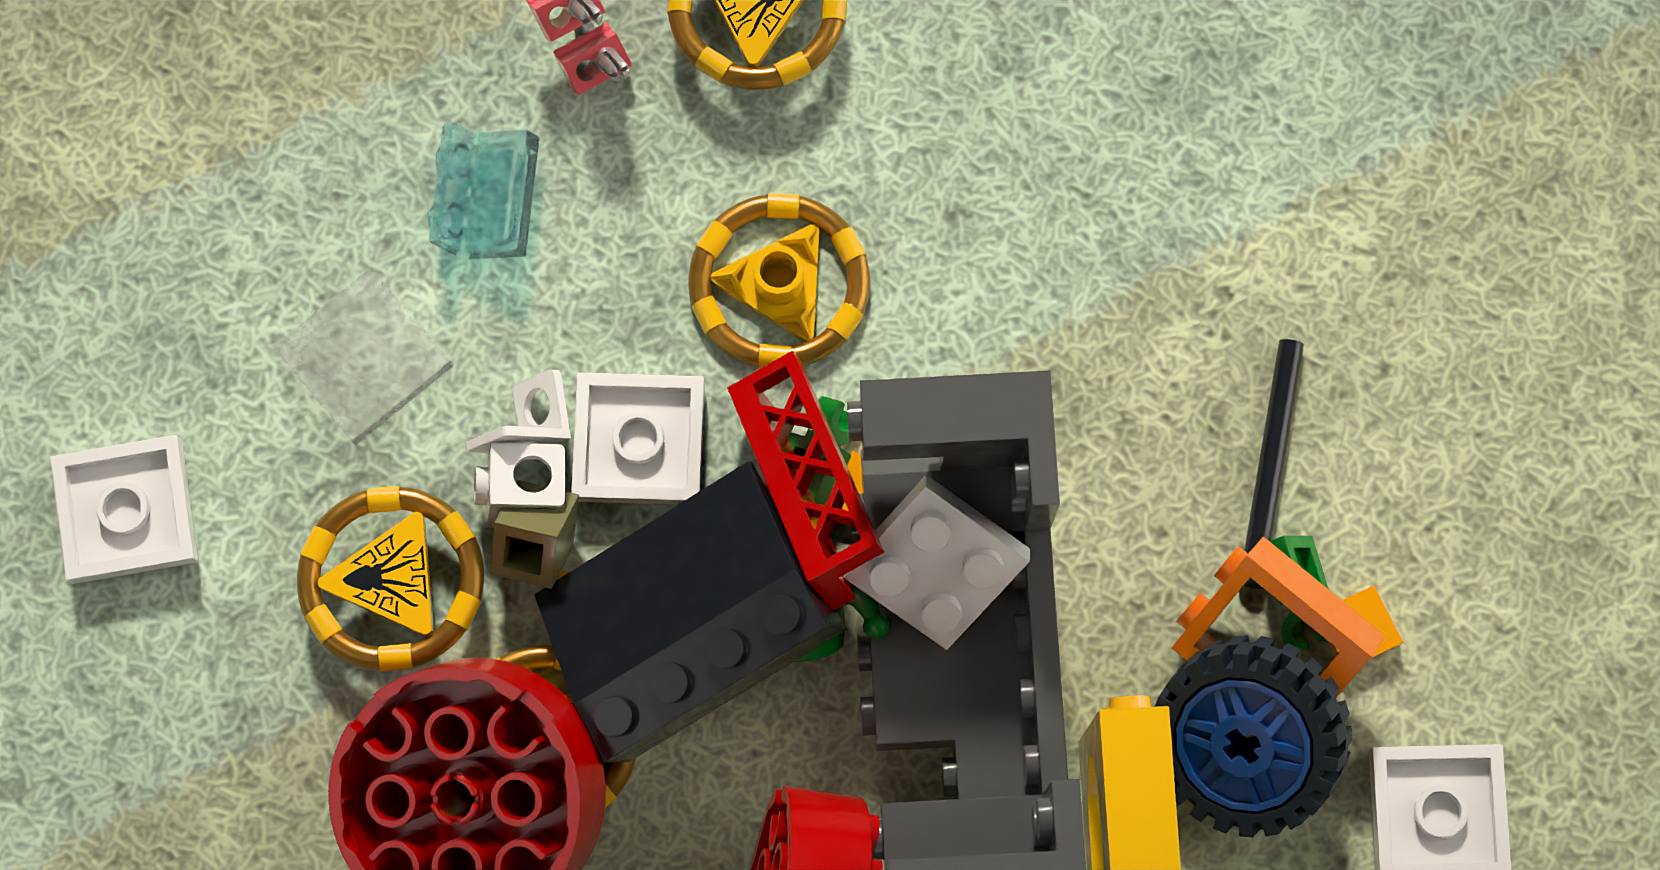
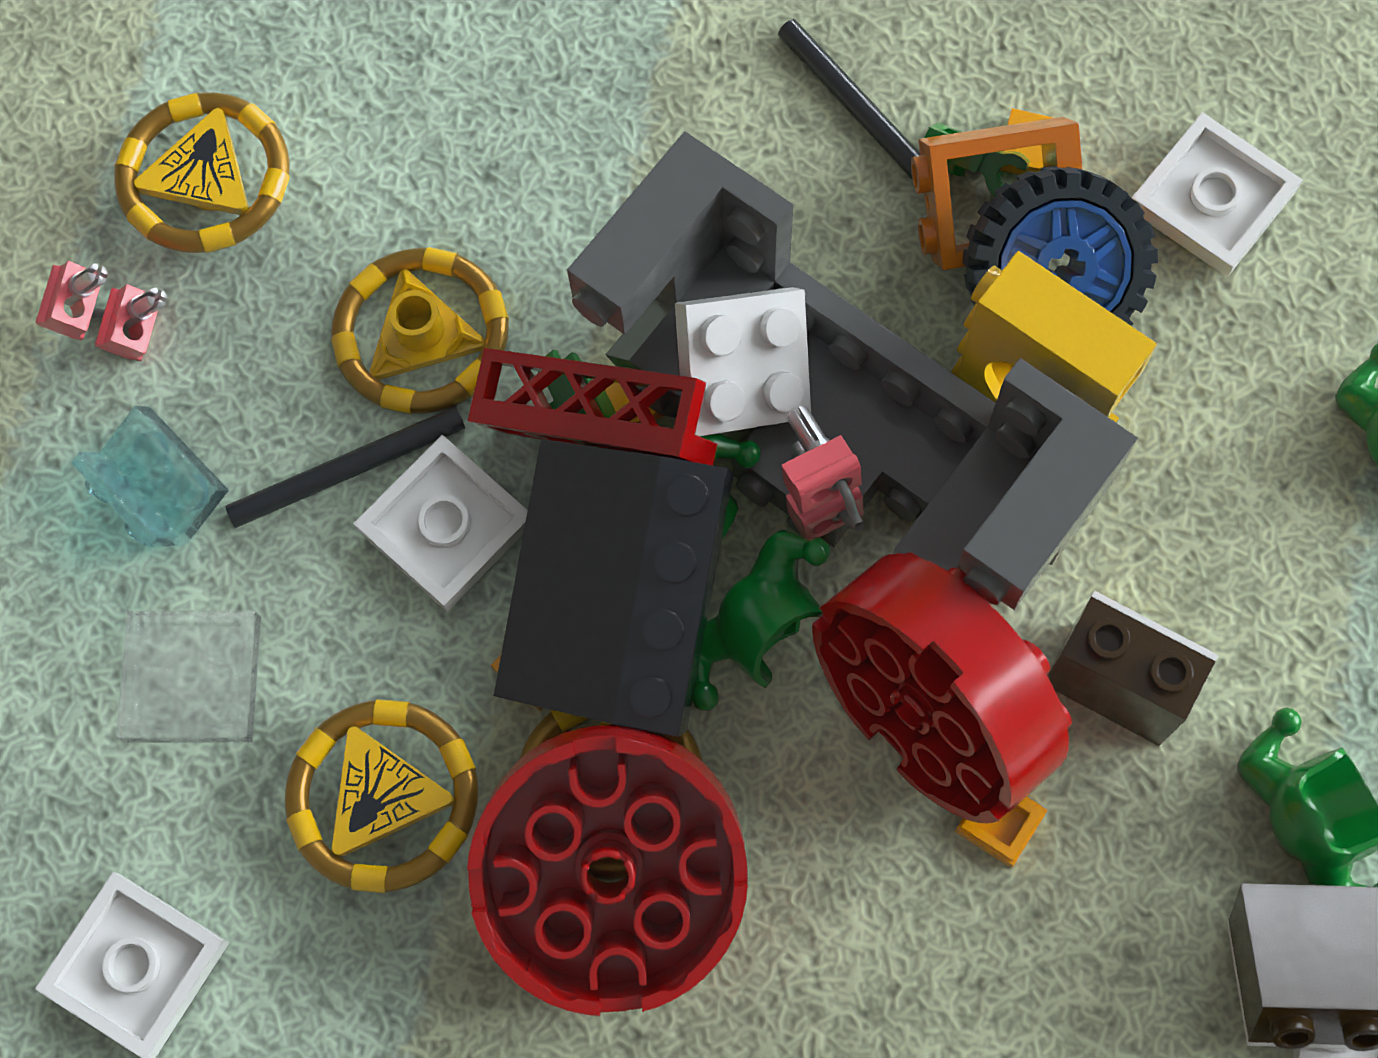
camera: 45 degrees left, 5 degrees down
(496, 485) = (384, 648): white bracket -> none
(533, 541) = (448, 655): olive brick -> none
(552, 431) = (367, 605): white bracket -> none
(622, 324) = (344, 467): none -> black bar
(761, 740) = (760, 612): none -> green piece
(890, 706) = (821, 480): none -> coral piece

